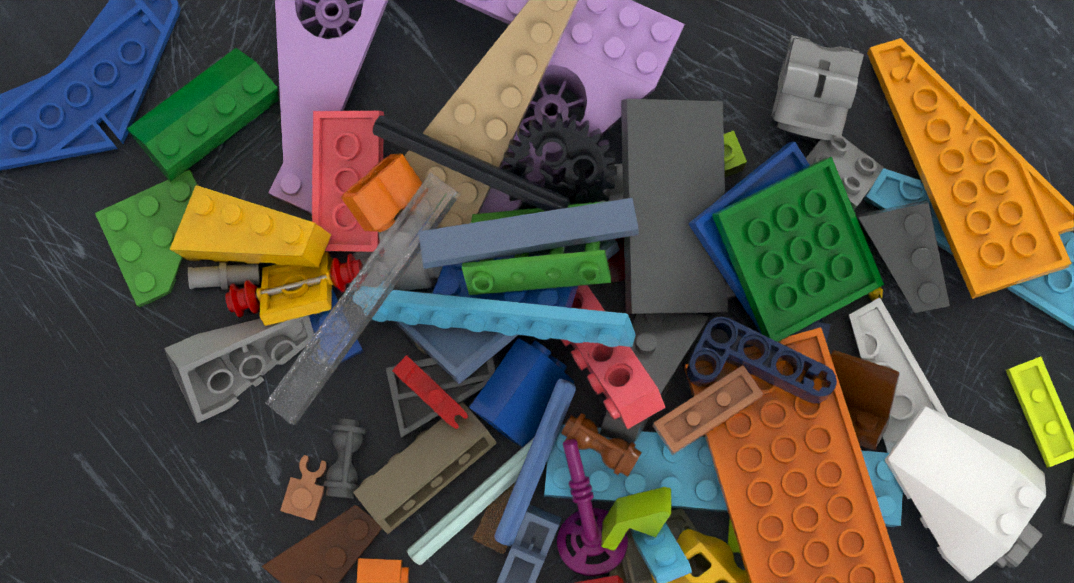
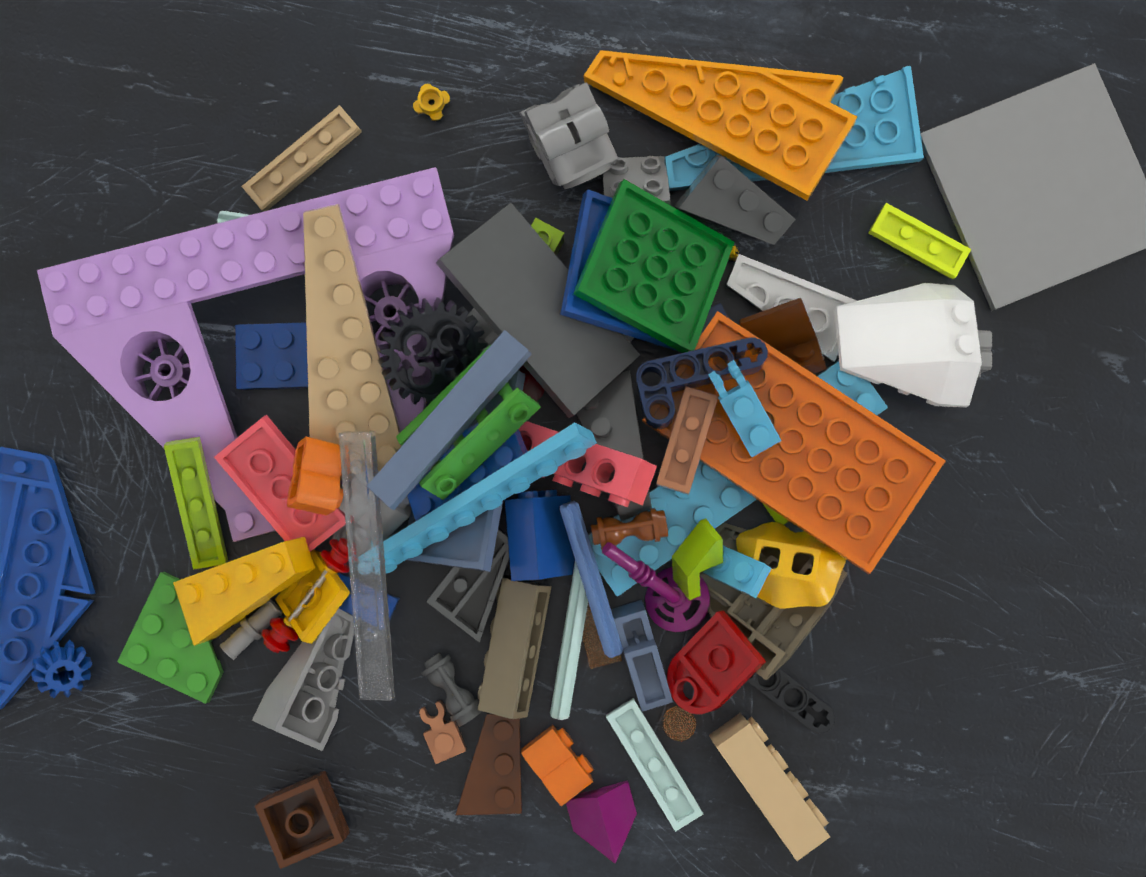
camera: 40 degrees left, 5 degrees up
(55, 193) = (51, 679): none -> blue gear
(137, 463) = (302, 819): none -> reddish brown brick
(204, 113) = (134, 524): green slope -> none
(267, 136) = (196, 502): none -> lime plate
(424, 69) = (271, 356): none -> blue plate
(429, 391) = (472, 593): red piece -> none
(468, 165) = (362, 404): black axle -> none
(775, 425) = (746, 412): none -> medium azure hinge

